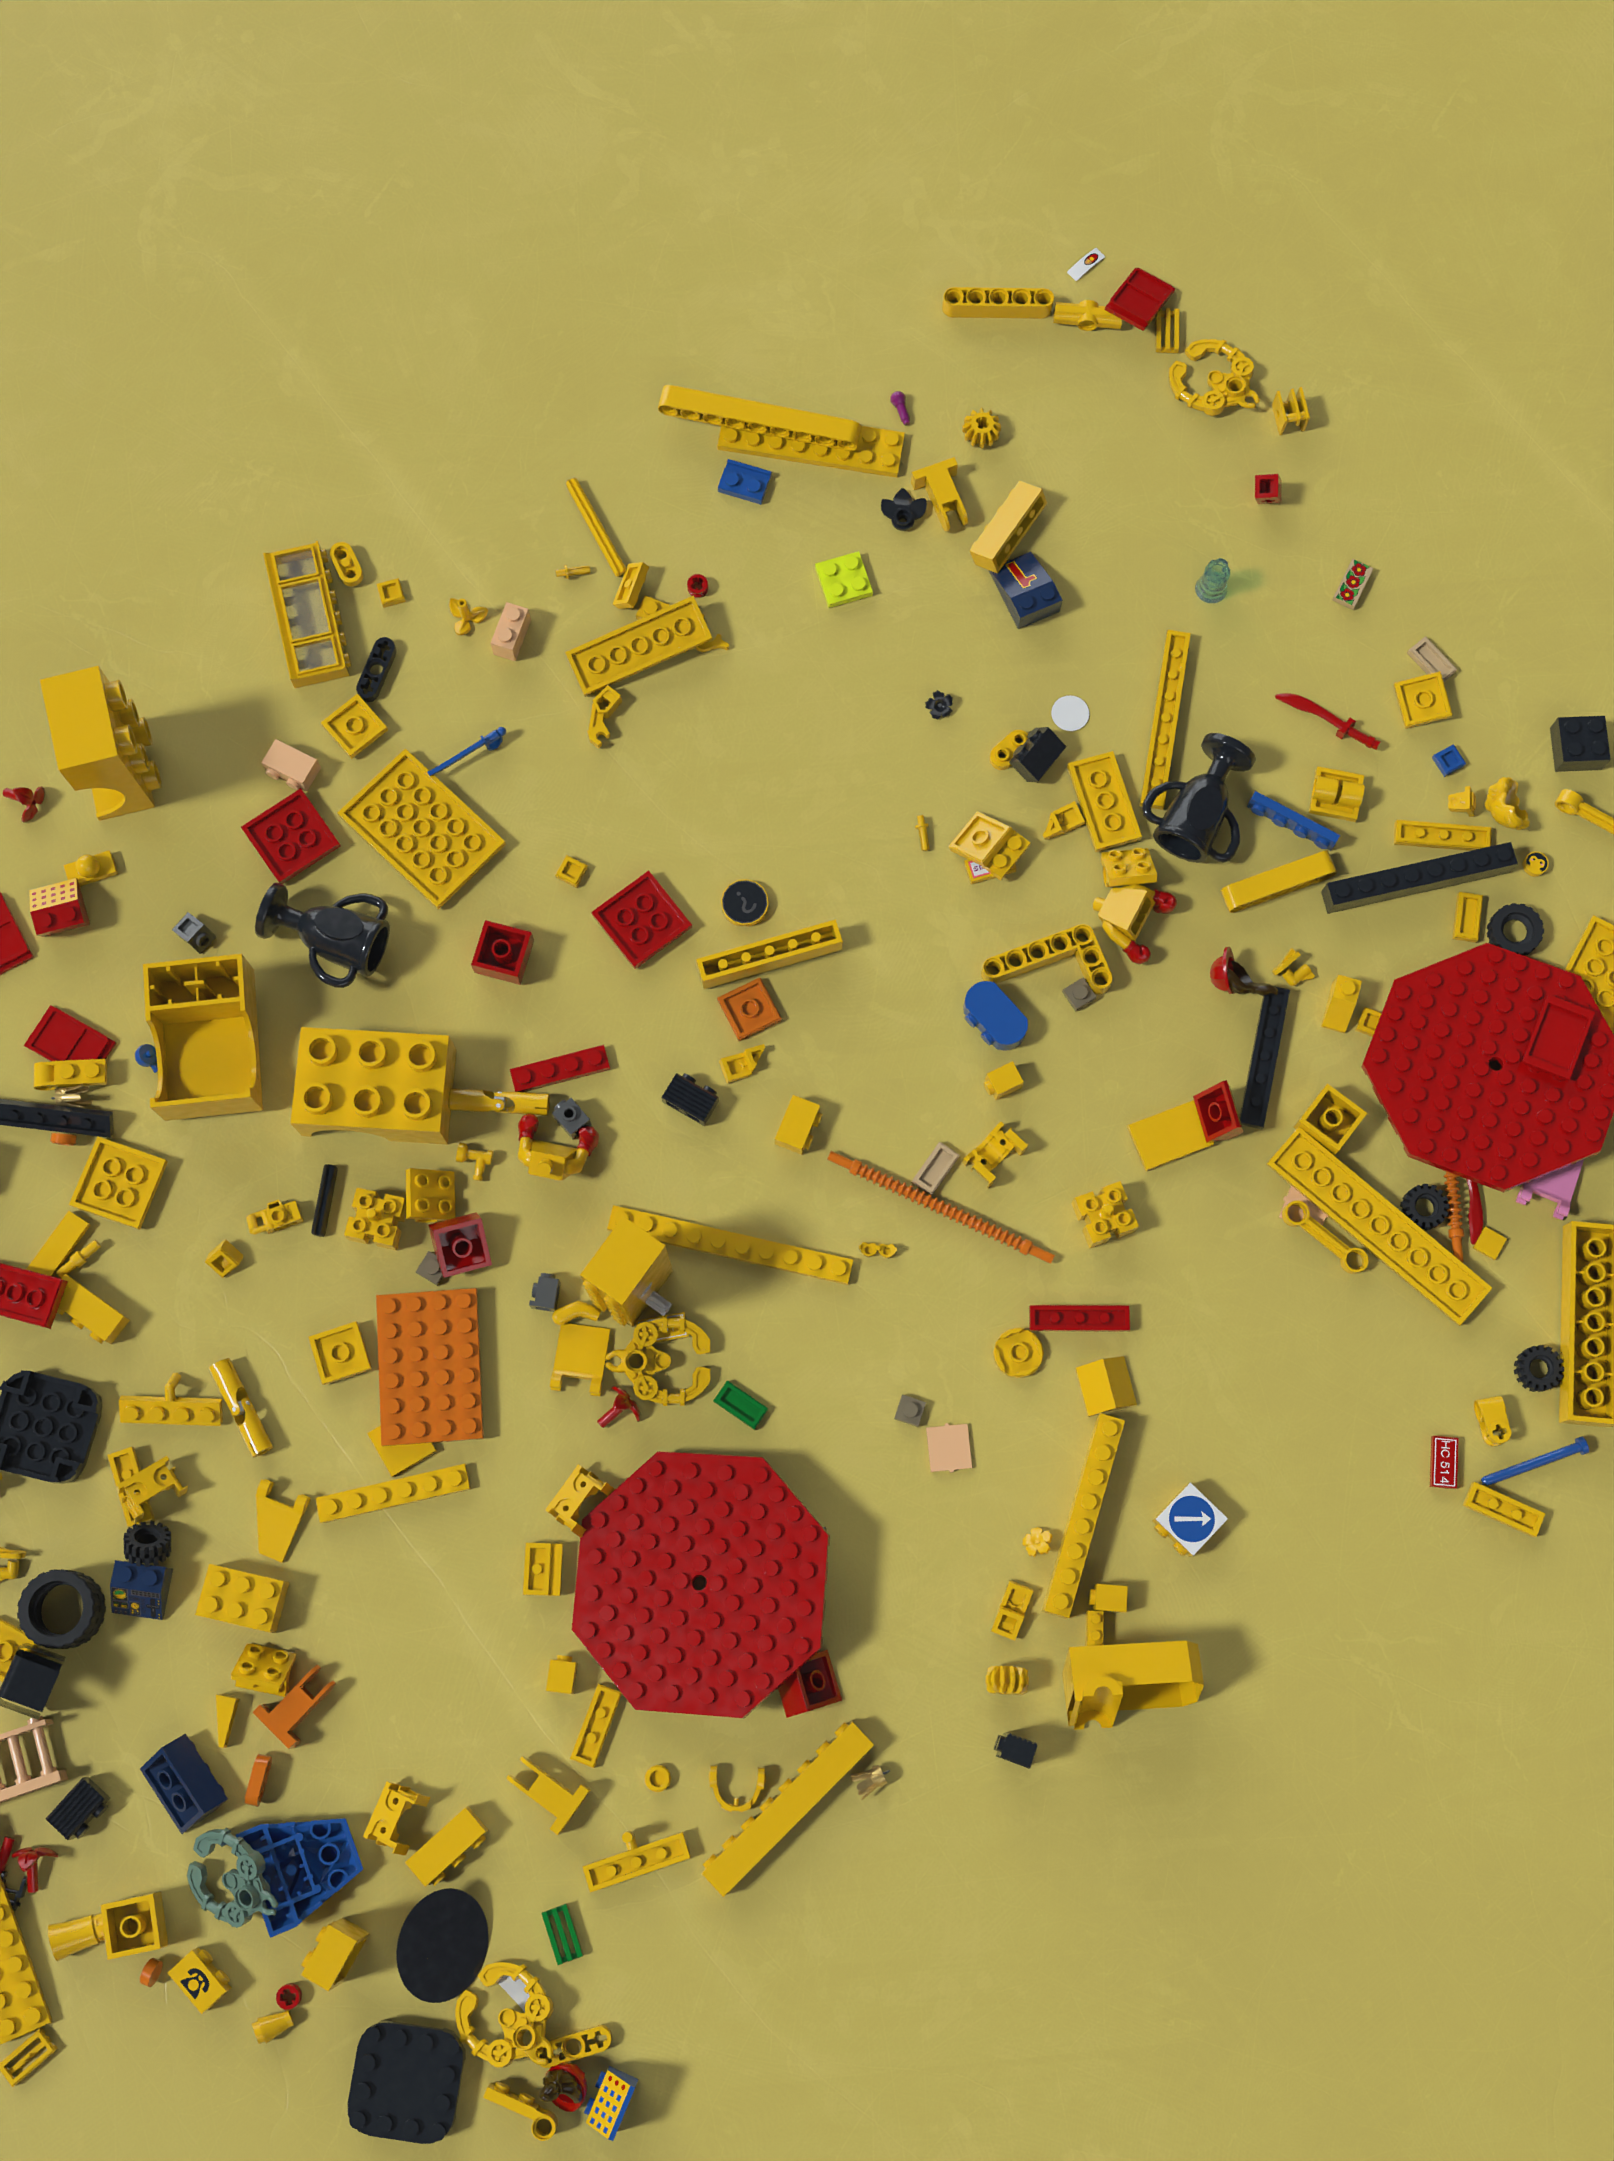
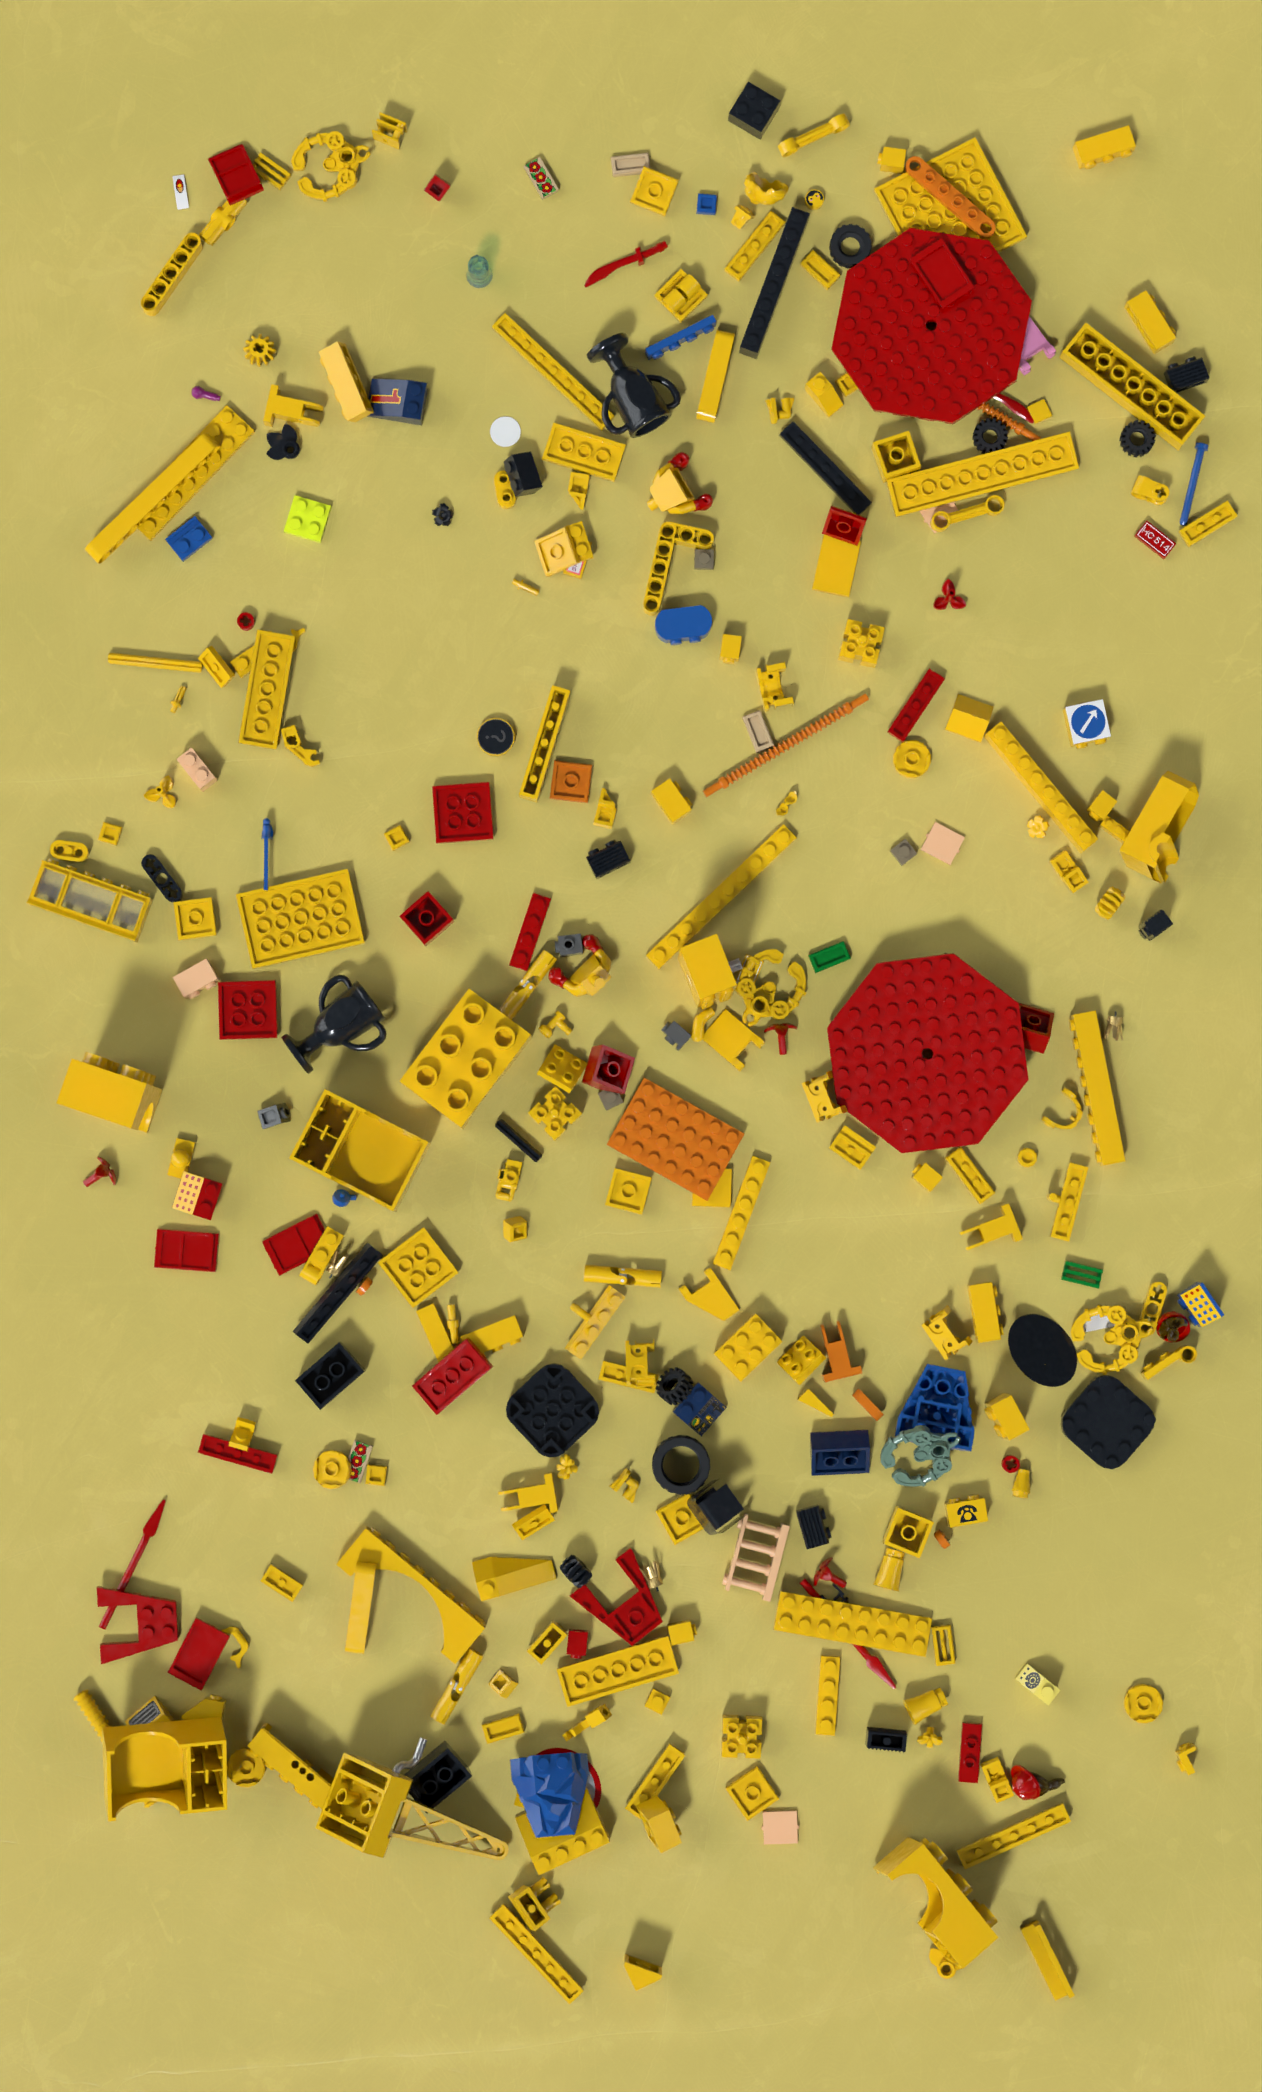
camera: 60 degrees left, 10 degrees up
(1128, 867) = (641, 468): yellow plate -> none
(1228, 1272) = (948, 590): none -> red plant
(1233, 978) = (760, 453): piece -> none

